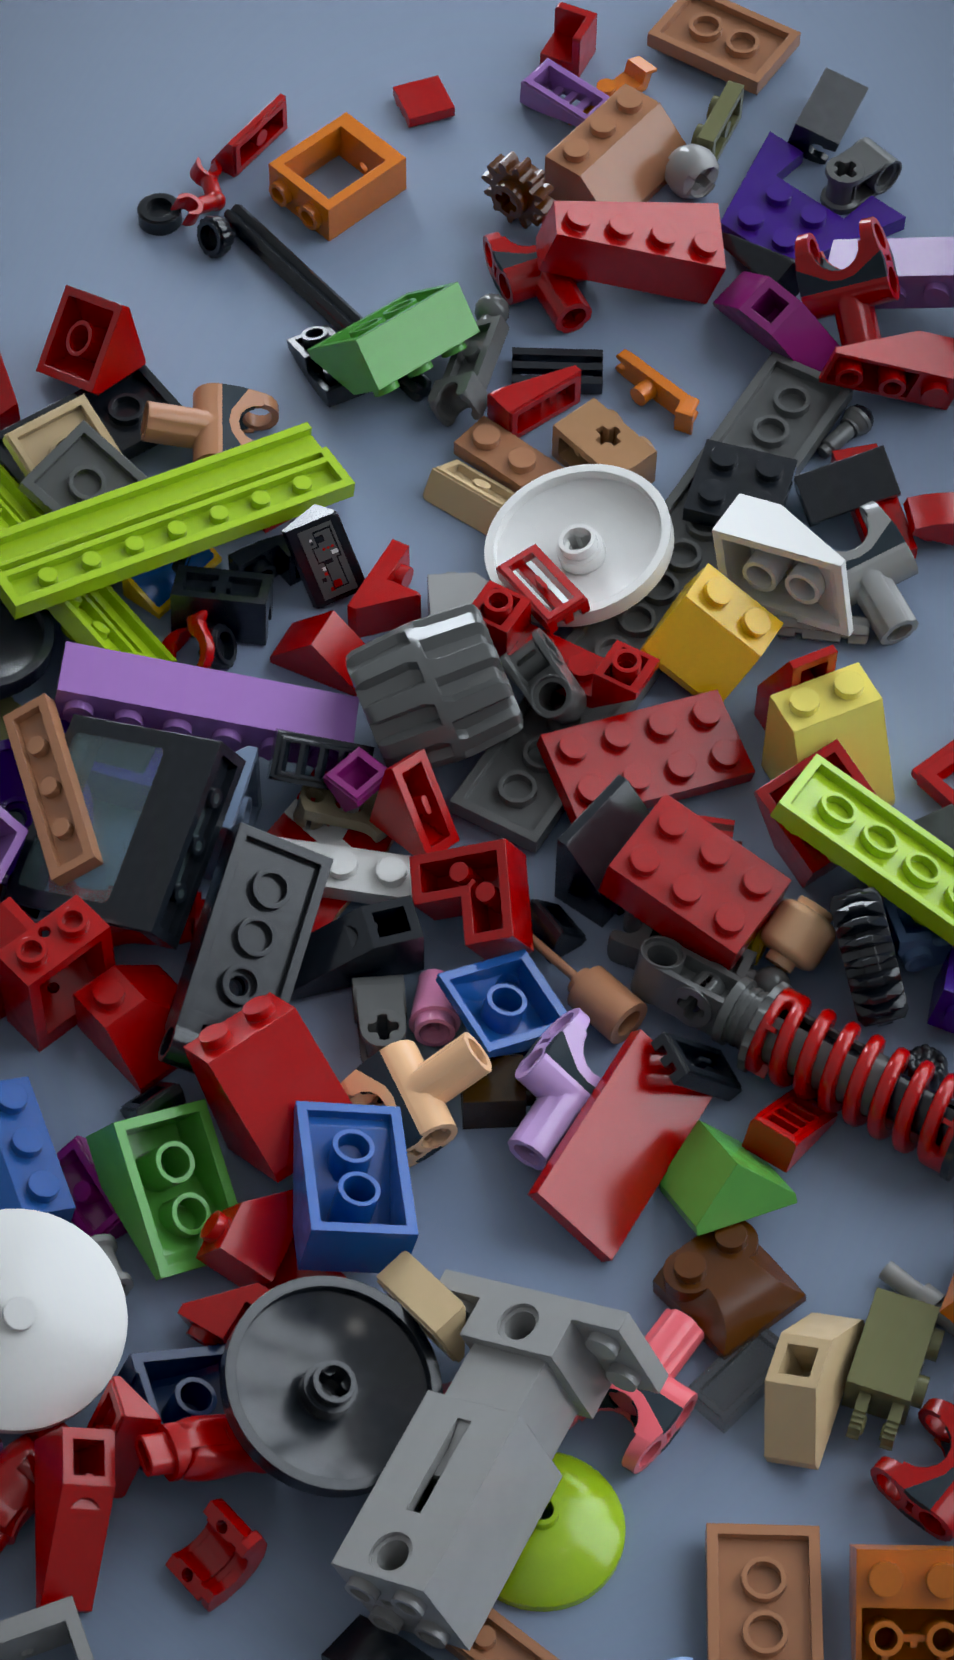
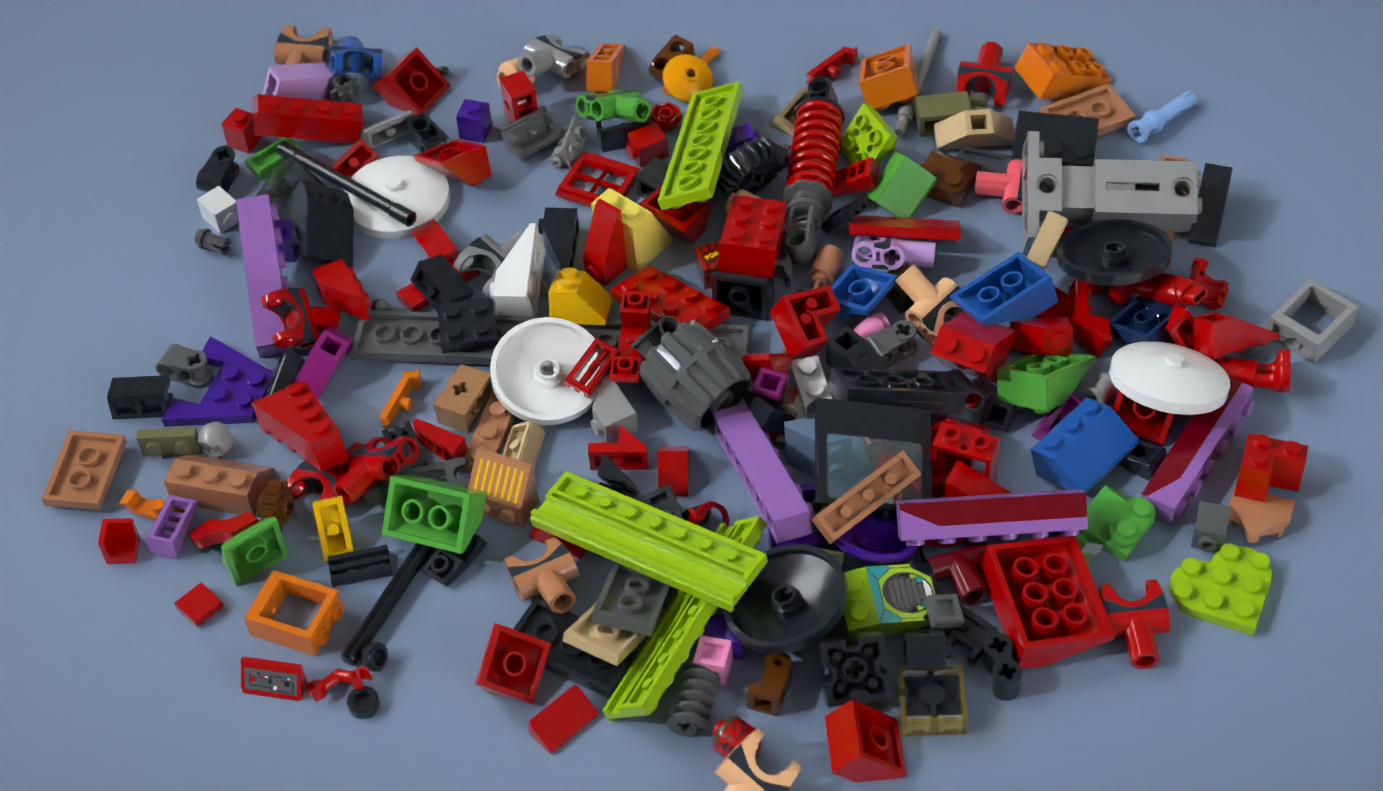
camera: 110 degrees left, 5 degrees down
(386, 244) = (359, 561): none -> black tile
(393, 434) = (508, 485): none -> nougat slope
(450, 248) = (333, 526): none -> yellow slope
(459, 150) = (253, 550): none -> bright green slope
(503, 295) = (374, 465): none -> red connector
(524, 132) = (219, 531): none -> red tile
(699, 1486) = (1063, 136): none -> black slope
(863, 1185) = (874, 136): none -> lime plate
(899, 671) = (560, 235): none -> black slope

